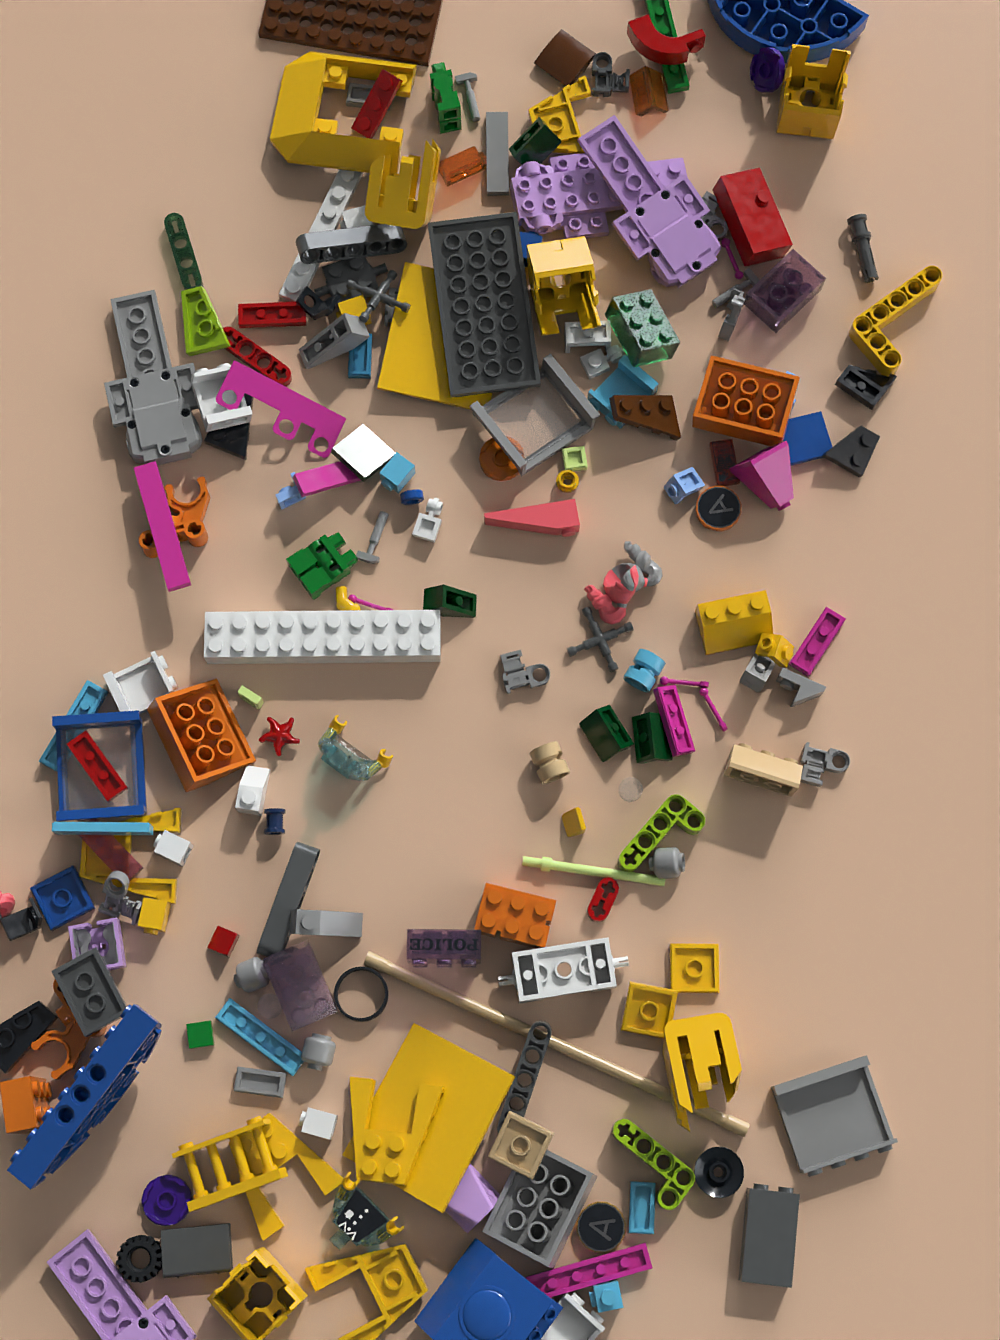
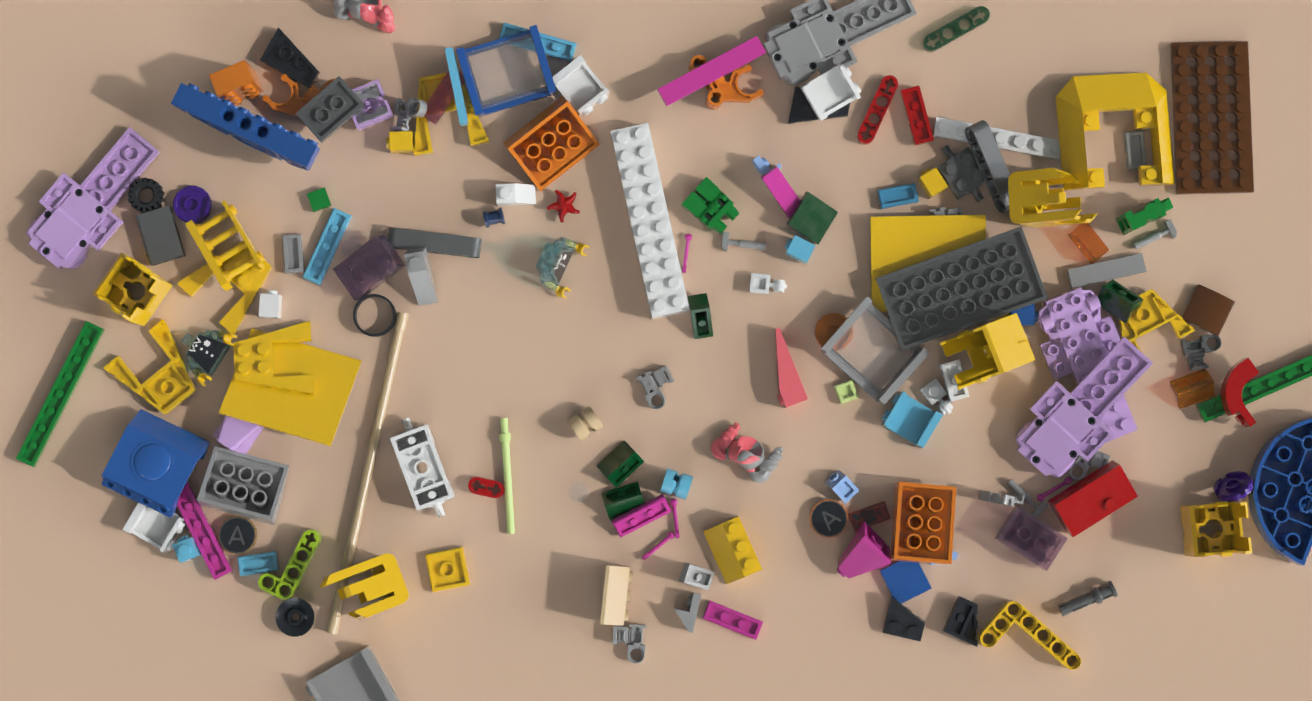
camera: 75 degrees right, 10 degrees up
(22, 922) = (375, 42): black bracket -> none
(62, 898) = (401, 68): blue tile -> none
(97, 766) = (506, 69): red plate -> none
(172, 847) = (456, 143): white brick -> none
(201, 324) = (895, 59): lime wing -> none
(223, 941) = (393, 200): red slope -> none
(250, 697) = (590, 170): yellowish green tile -> none
(251, 975) = (370, 227): light grey head -> none
(289, 403) = (840, 148): dark pink piece -> none
(318, 1051) = (323, 292): light grey head -> none
(320, 307) = (932, 155): black bracket -> none
(334, 340) = (903, 172): light grey slope -> none
(342, 602) = (681, 232): yellow arm -> none
(354, 218) = (1015, 162): white brick -> none
(376, 104) = (1125, 159): red plate -> none
(378, 296) = (949, 199): dark grey piece -> none
(412, 497) = (782, 266): blue tile -> none
(443, 947) = (420, 371): clear purple brick -> none
(516, 915) = (458, 421): orange piece -> none
(521, 1145) = (282, 461): tan tile -> none
(530, 1068) = (324, 454): dark grey beam -> none
(567, 474) = (820, 394): yellow plate -> none
(574, 822) = (542, 452): yellow slope -> none
(600, 639) = (697, 443): dark grey piece -> none
(642, 328) = (969, 424): clear green brick -> none
(647, 411) = (897, 444): reddish brown wing -> none
(648, 1009) = (407, 540): yellow tile -> none
(655, 835) = (544, 519): lime beam -> none
(667, 862) = (524, 532): light grey head -> none
(769, 1236) = (255, 664): dark grey brick -> none
(775, 648) = (717, 586): yellow bracket -> none

